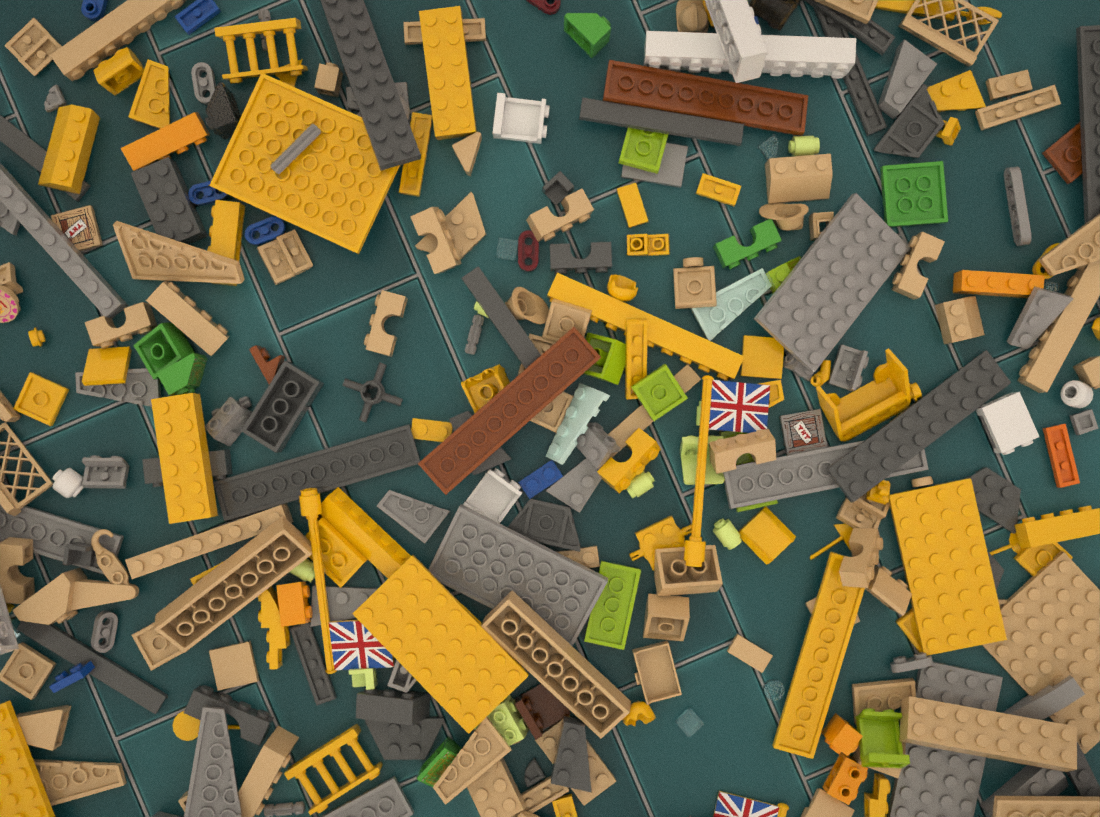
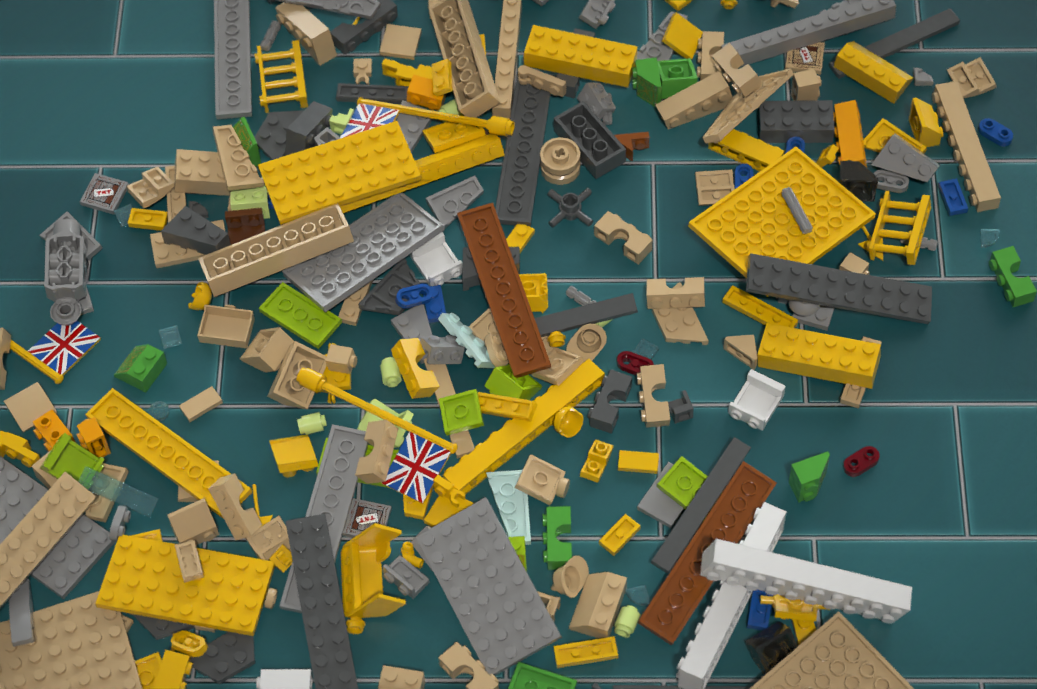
camera: 125 degrees right, 30 degrees down
(124, 207) = (805, 85): none -> tan brick
(127, 297) = (743, 79): none -> tan arch
(175, 72) = (905, 159): none -> light grey wedge
(199, 157) = (827, 155): none -> yellow plate
(230, 487) = (541, 80): none -> tan plate
(274, 593) = (442, 77): none -> yellow plate
(287, 688) = (362, 70): none -> tan plate
(309, 426) = (560, 161): none -> tan wheel
(536, 337) = (556, 339): none -> yellow plate
(550, 499) = (412, 295): none -> blue plate
(577, 390) = (495, 349): none -> tan plate
(654, 535) = (341, 359): none -> tan brick
(737, 733) = (142, 367): none -> bright green slope
(747, 371) = (445, 488): none -> yellow plate
(849, 170) = (585, 652): none -> yellow plate
(885, 681) = (118, 491): none -> clear light blue tile
(932, 572) = (189, 561): none -> tan plate
(1003, 532) = (189, 643): none -> yellow plate

